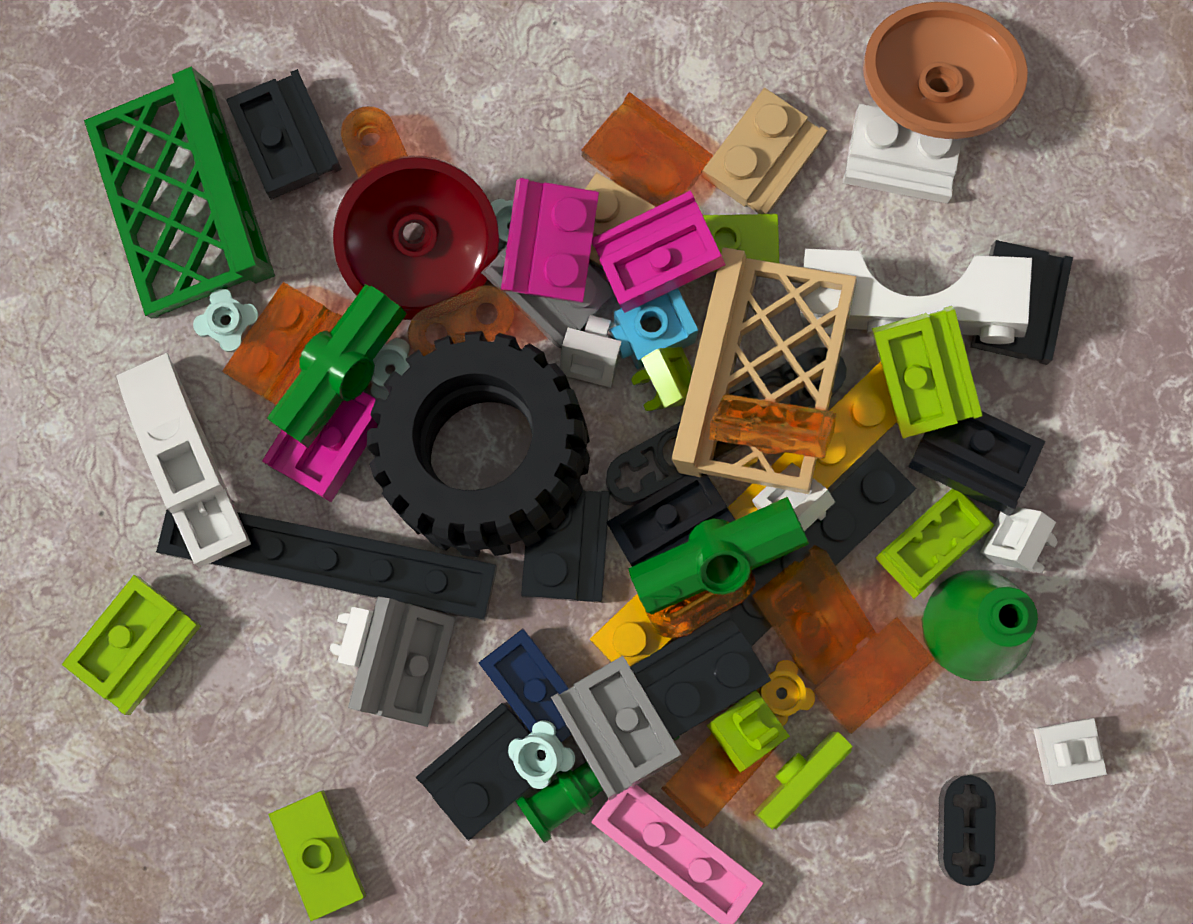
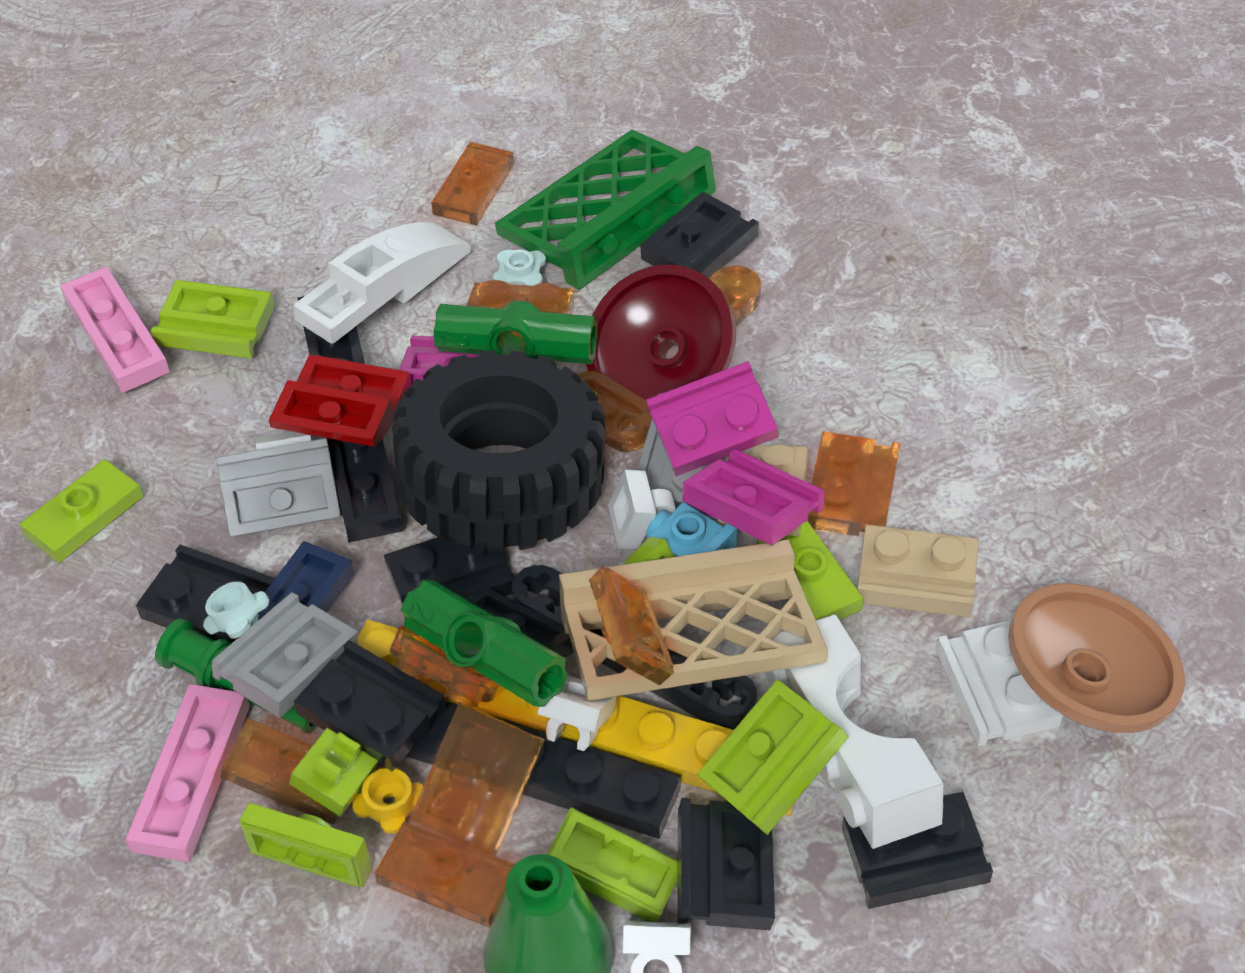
camera: 65 degrees right, 30 degrees down
(70, 311) = (472, 183): none -> clear orange plate
(90, 749) = (115, 329): none -> bright pink plate
(340, 565) = (341, 400): none -> red slope

